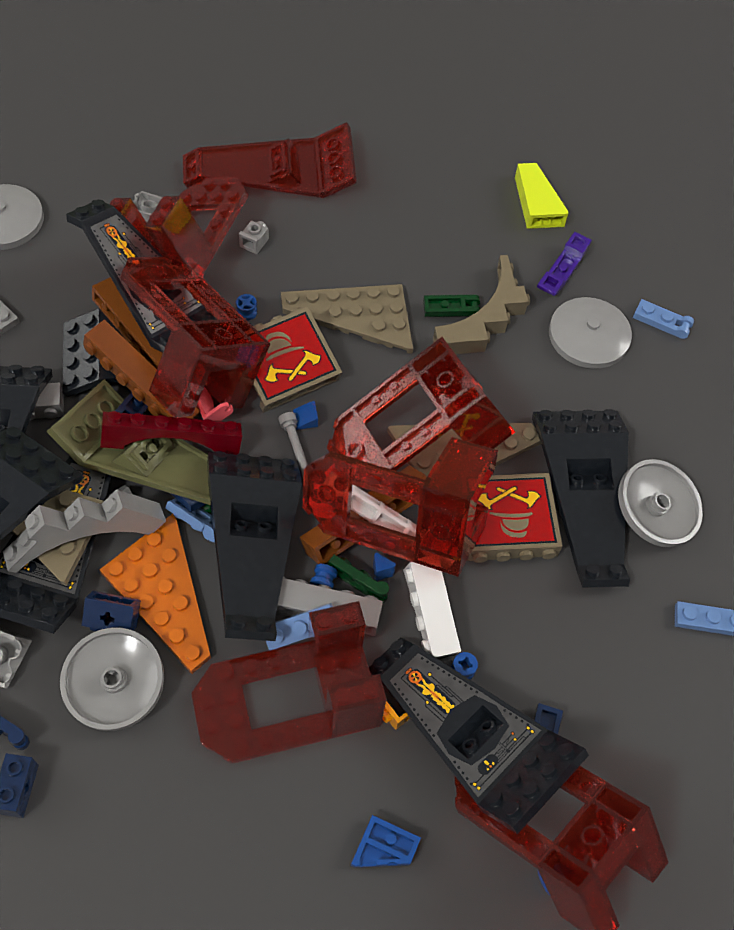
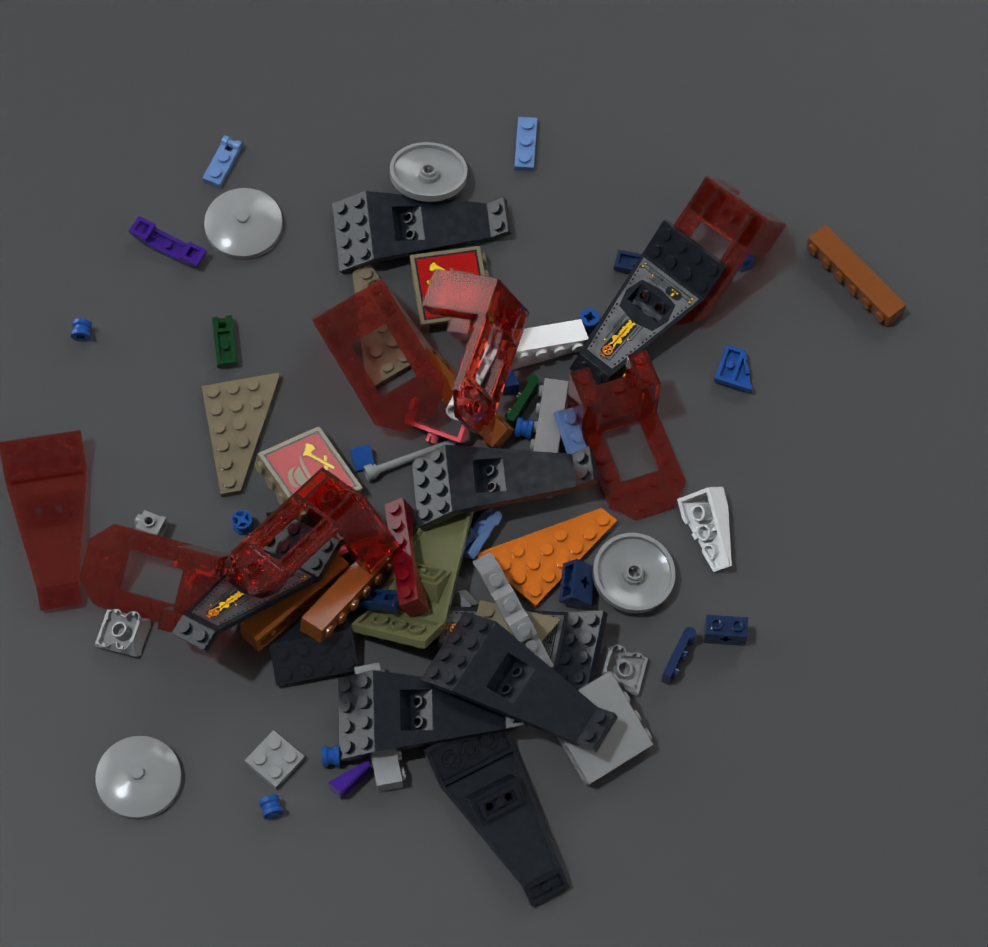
camera: 90 degrees left, 5 degrees up
(173, 786) = (709, 520): none -> white wedge
(467, 195) = (81, 330): none -> blue wheel
(474, 332) = (213, 294): dark tan arch -> none
(538, 199) = (78, 266): neon yellow slope -> none

